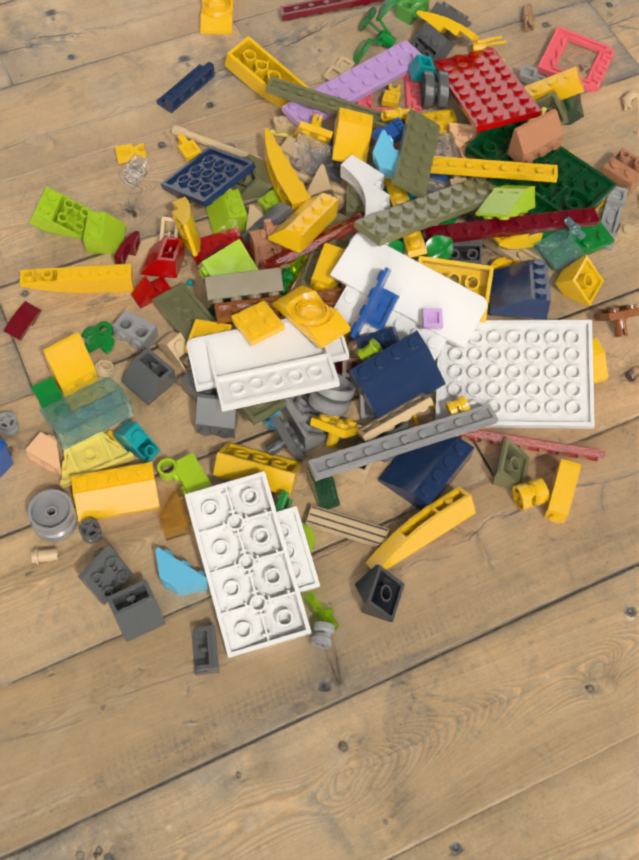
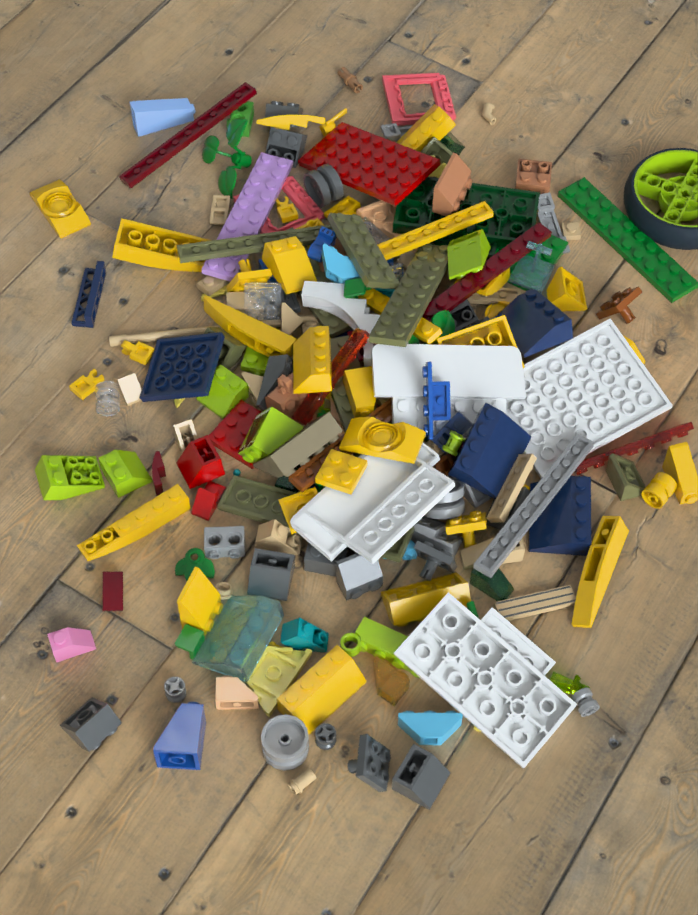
camera: 30 degrees left, 5 degrees down
(159, 171) = (128, 387): none -> slope
(186, 225) = (202, 420): yellow slope -> none
(205, 650) = (501, 773): dark grey hinge -> none
(380, 593) = (604, 641): black slope -> none
(384, 180) = (354, 288): none -> green panel
(387, 115) = (314, 224): yellow pin -> none
(420, 64) = (296, 170): teal slope -> none
(432, 318) = (486, 386): lavender plate -> none
(457, 406) = (553, 451): yellow wheel -> none

